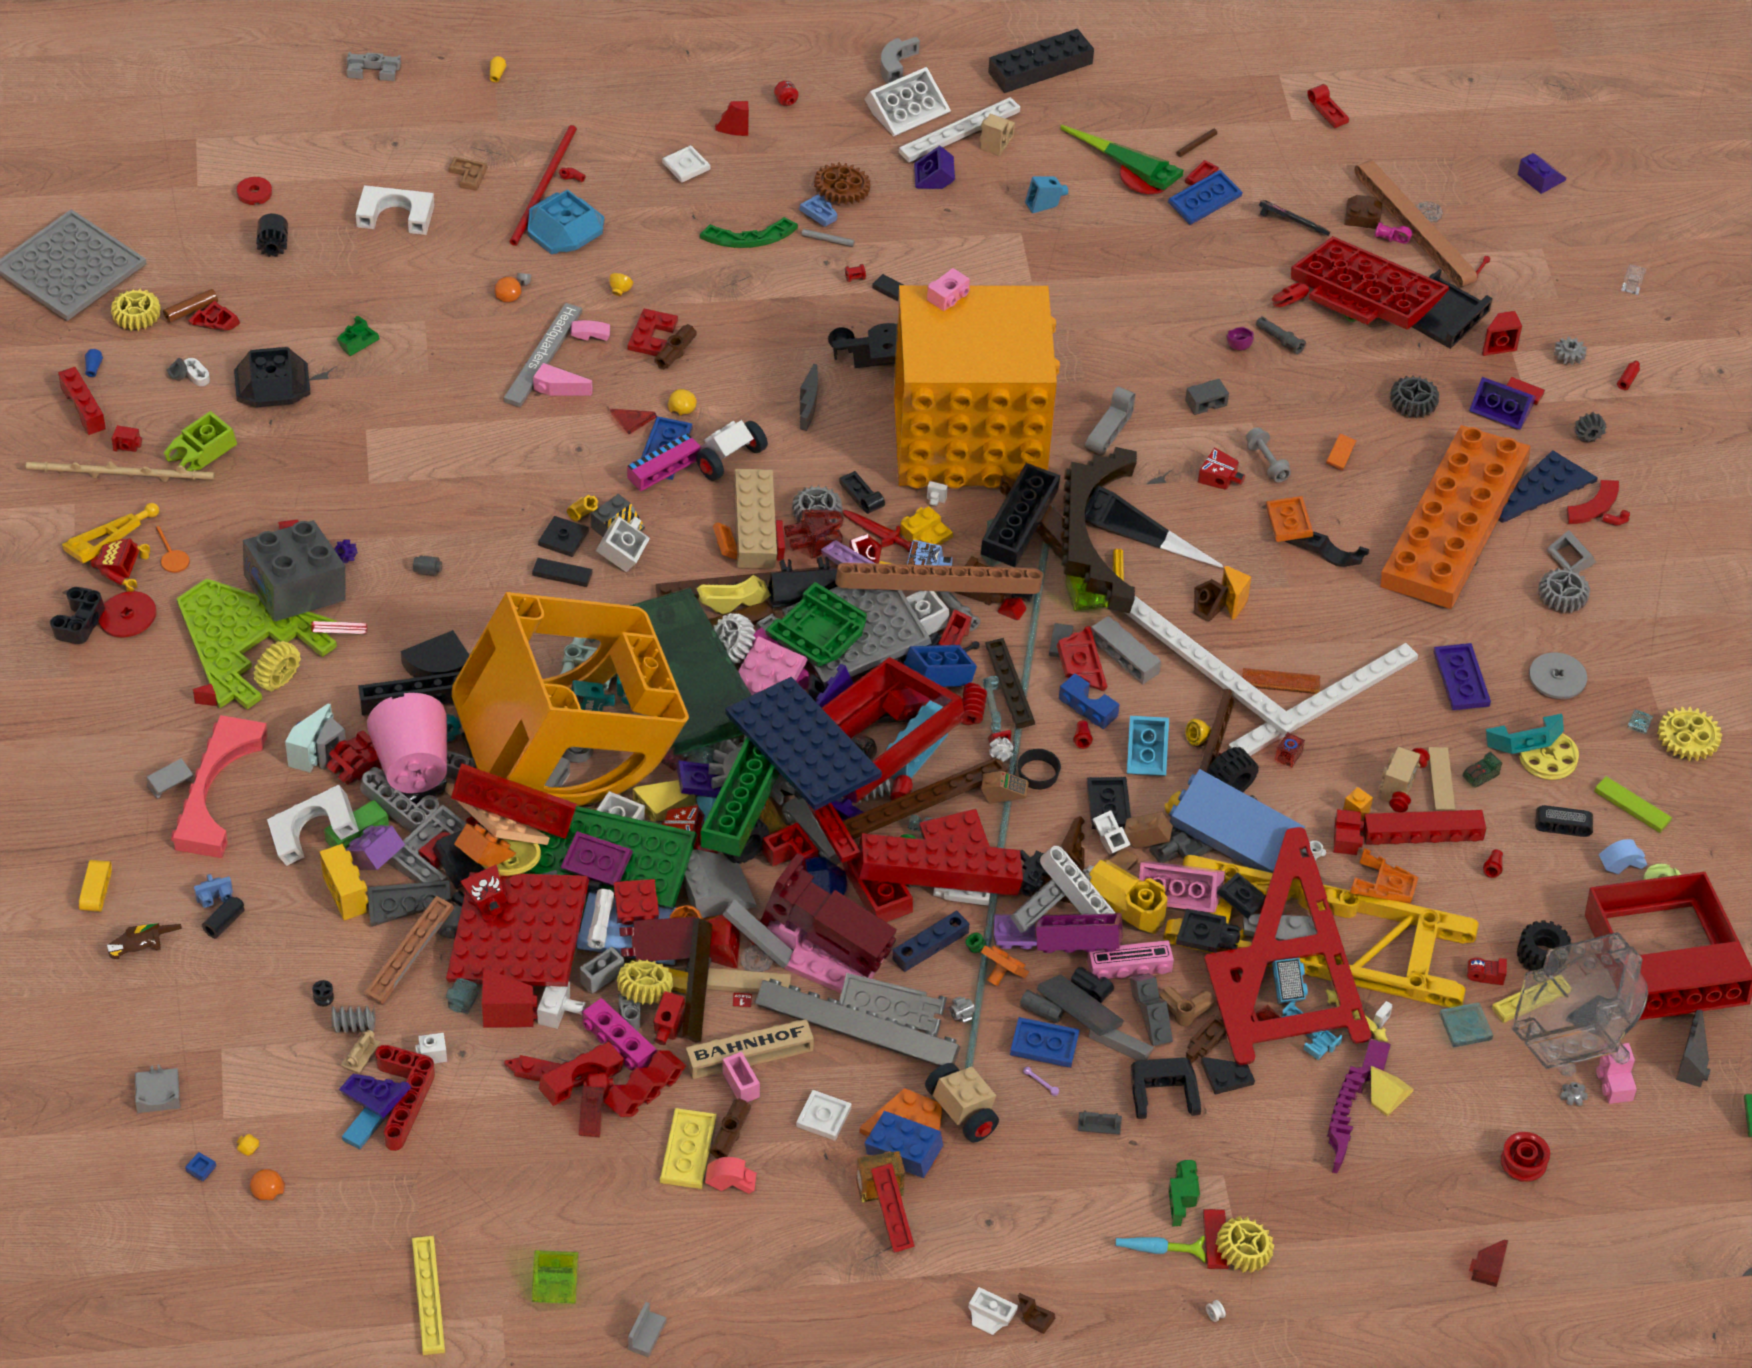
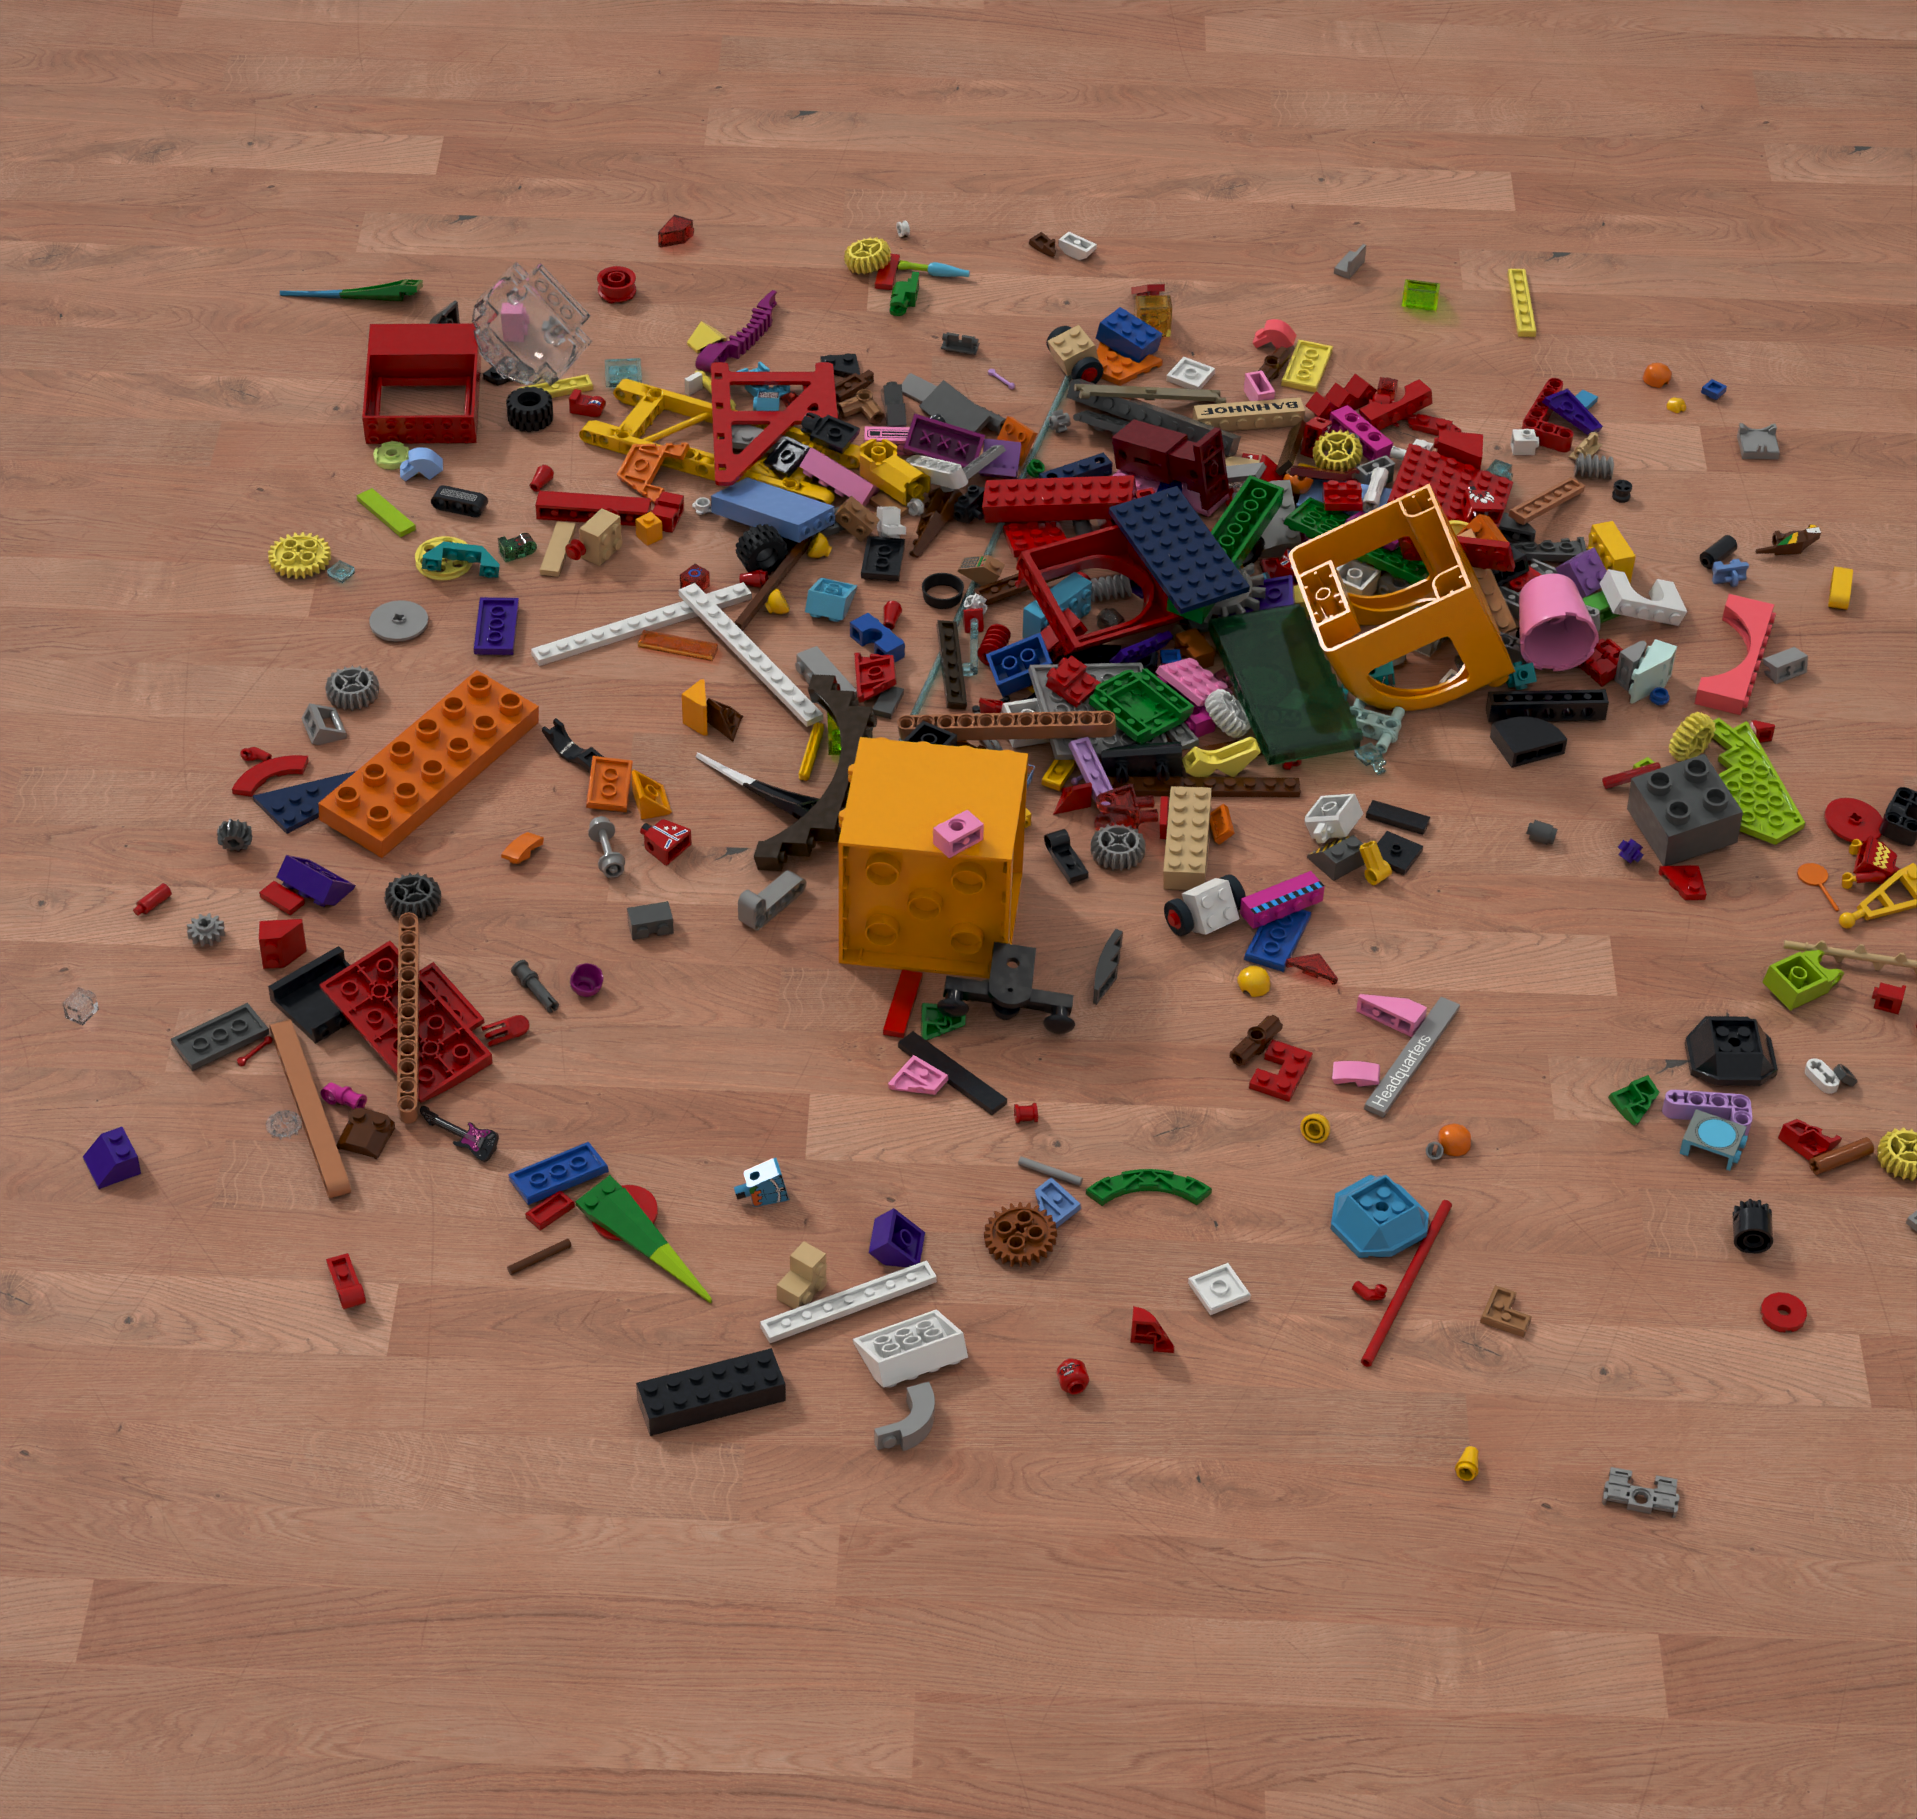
camera: 170 degrees left, 5 degrees down
(295, 330) = (1732, 1107): none -> lavender beam
(296, 301) = (1715, 1136): none -> panel
(378, 198) = (1621, 1274): white arch -> none
(866, 1048) = (1148, 393): none -> dark tan piece
(886, 629) = (1071, 681): none -> red plate
(887, 535) = (1045, 818): red sword -> none
(1044, 1042) = (994, 396): blue plate -> none
(1164, 1074) = (897, 365): black connector -> none
(1249, 510) = (649, 796): none -> light orange slope
(1366, 268) = (408, 1025): none -> nougat beam
(1512, 269) = (219, 1036): none -> dark grey plate

